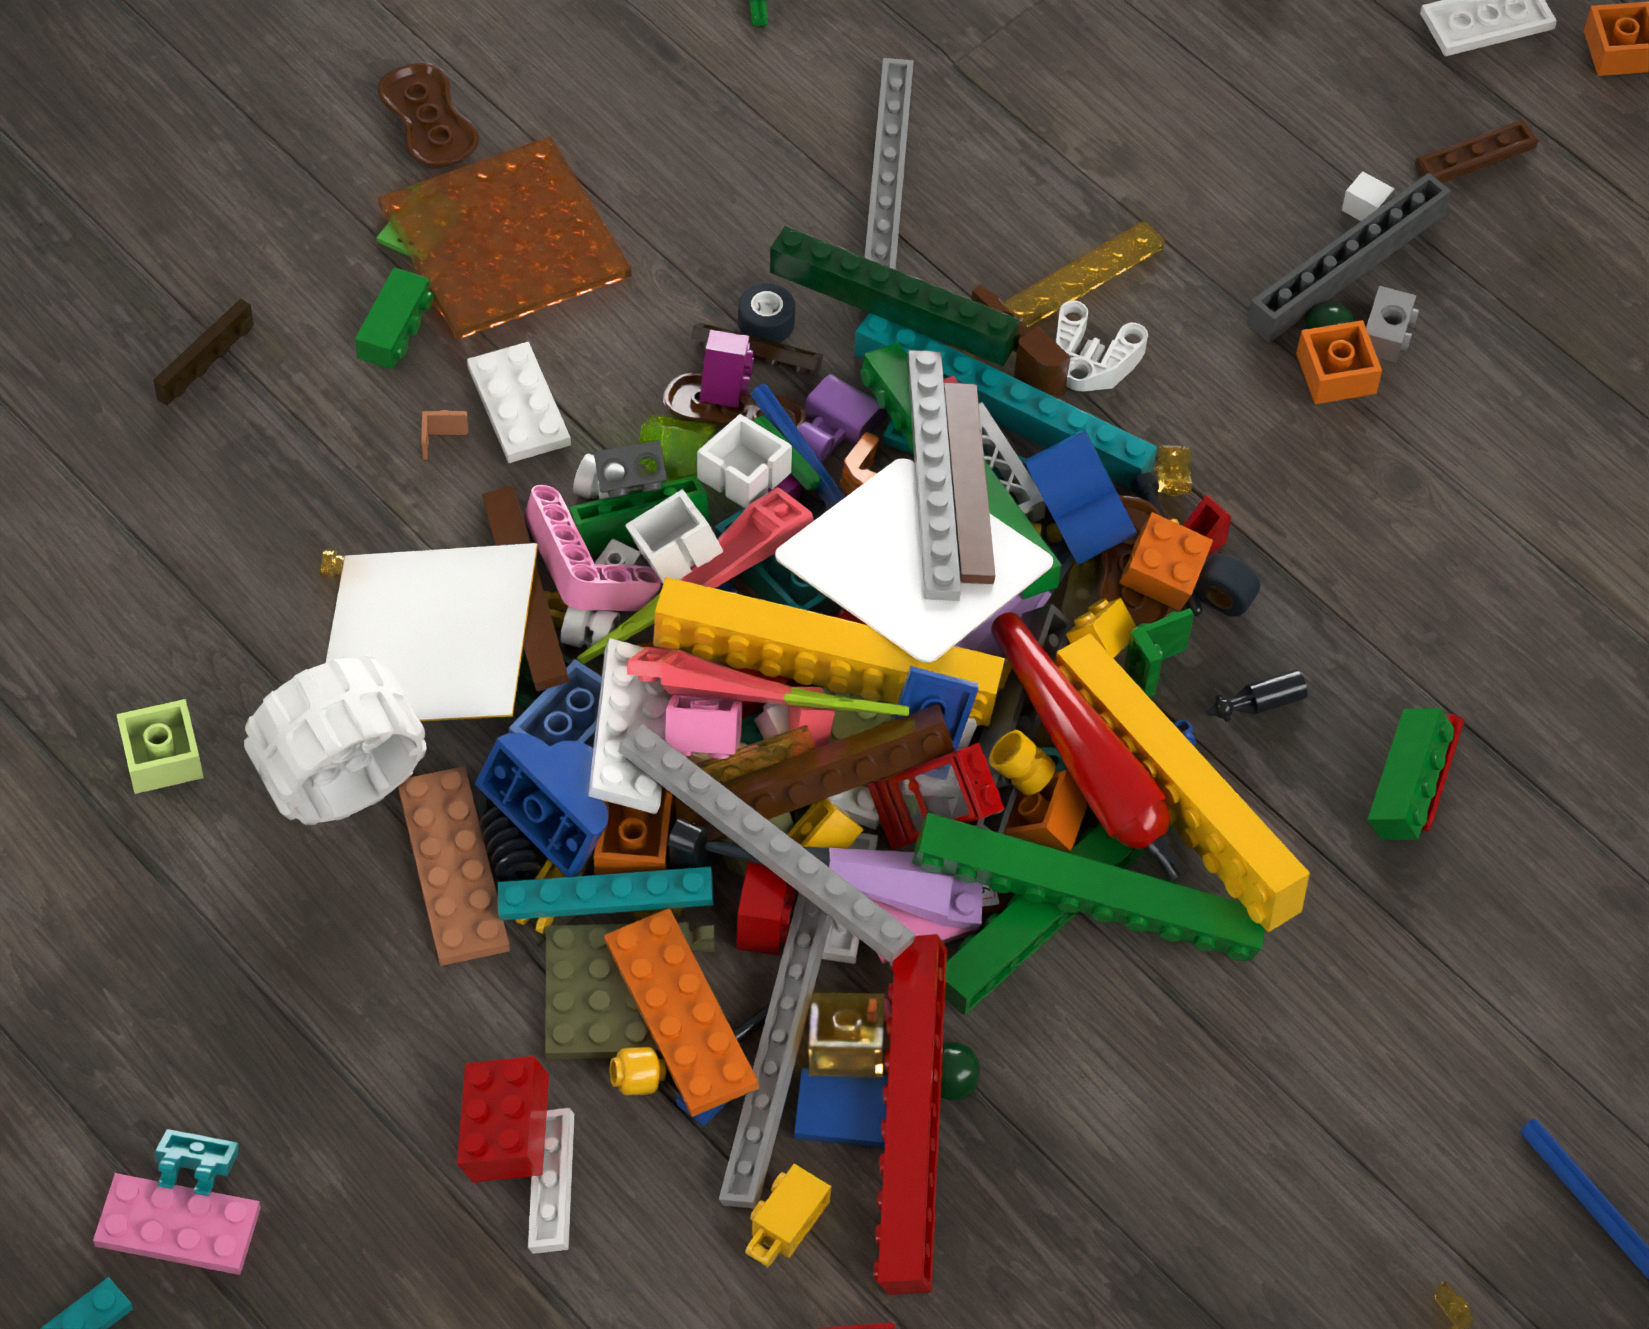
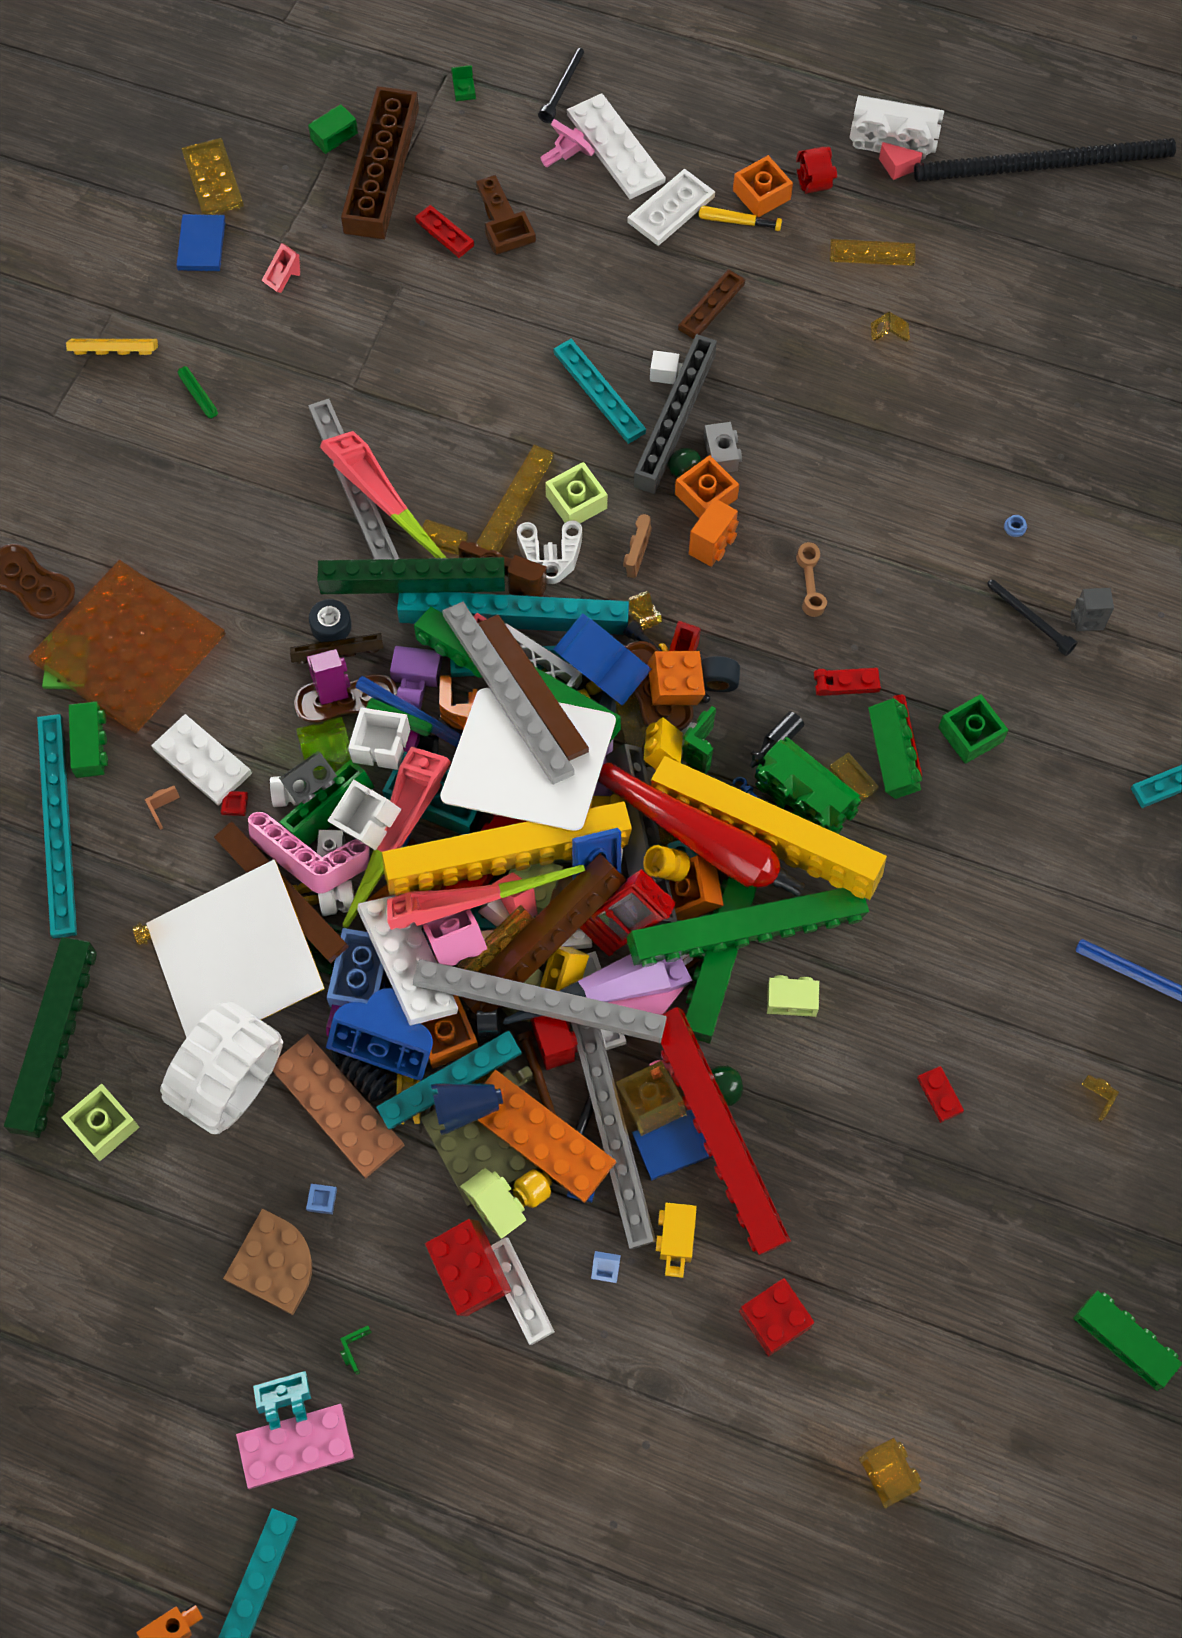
camera: 25 degrees left, 10 degrees up
(156, 628) = (50, 1038): none -> dark green brick
(271, 1005) = (273, 1263): none -> medium nougat plate
(301, 400) = (56, 827): none -> teal plate
(307, 1135) = (346, 1353): none -> green bracket
(372, 959) = (321, 1199): none -> medium blue plate
(530, 469) = (234, 803): none -> red tile
(577, 1055) = (493, 1202): none -> yellowish green brick
(603, 920) = (464, 1103): none -> dark blue cone
(676, 1206) = (605, 1267): none -> medium blue plate
(730, 898) = (525, 1039): none -> reddish brown bar
(906, 152) = (360, 466): none -> coral plate
(962, 274) = (444, 537): none -> clear yellow plate
(1102, 1006) = (793, 996): none -> yellowish green brick
(1164, 297) = (576, 494): none -> yellowish green brick
(1210, 393) = (638, 546): none -> medium nougat hinge
(1233, 1216) = (940, 1094): none -> red plate
(1264, 763) = (806, 786): none -> green brick
(1266, 193) = (599, 391): none -> teal plate
(1316, 415) = (713, 532): none -> orange brick
(1337, 787) = (854, 776): none -> clear yellow plate
(1396, 671) = (847, 681): none -> red plate
(1428, 503) = (807, 558): none -> medium nougat piece
(1531, 796) = (973, 728): none -> green brick
(1552, 54) = (727, 216): none -> yellow piece

